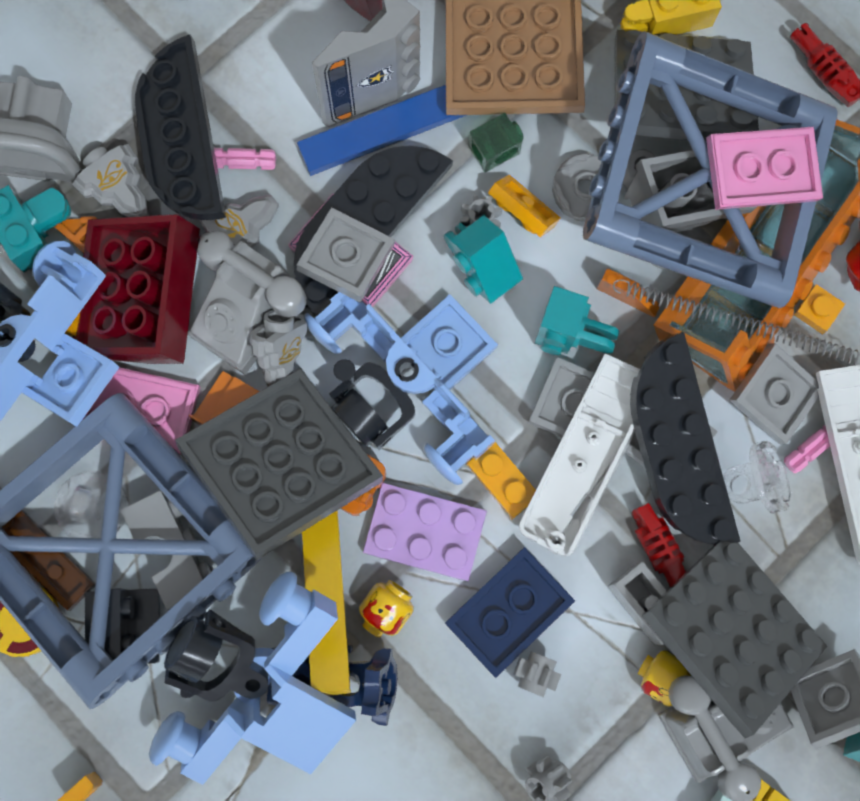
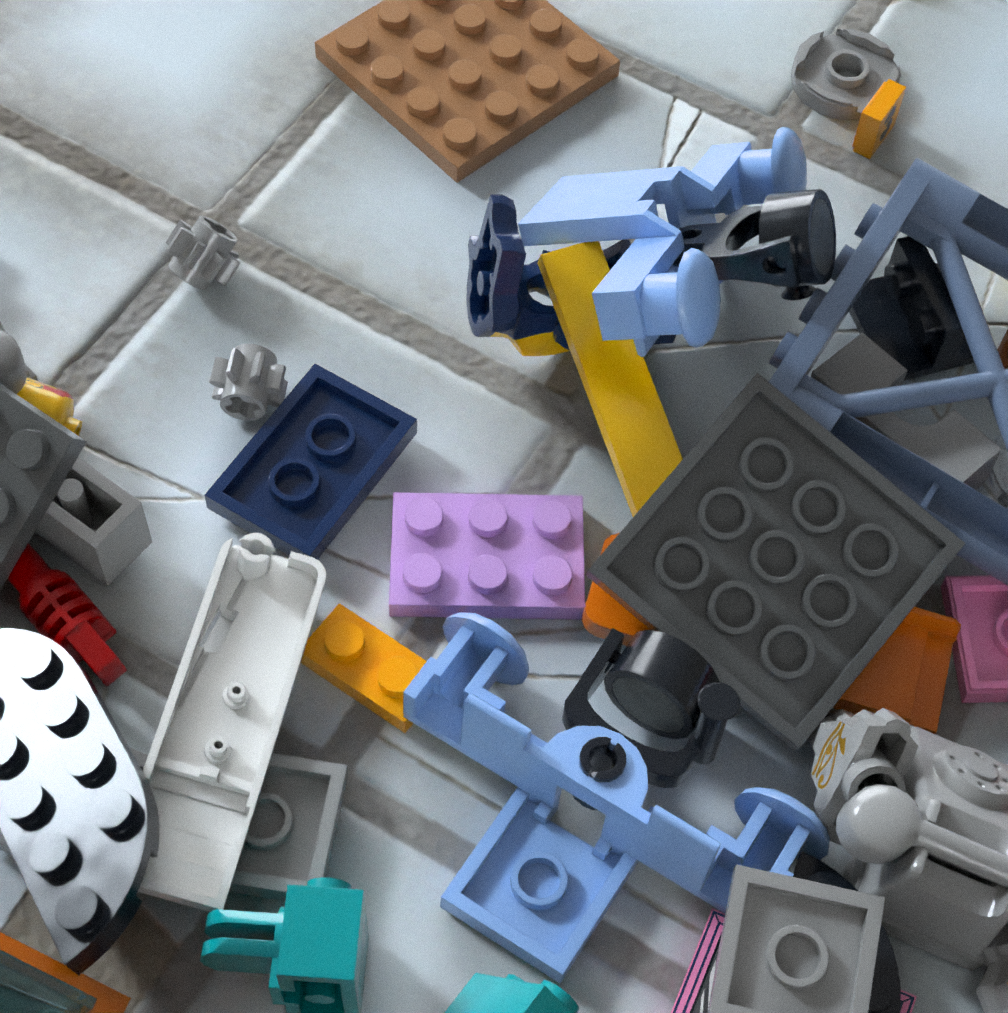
camera: 165 degrees right, 20 degrees down
(386, 609) = (517, 419): yellow head -> none

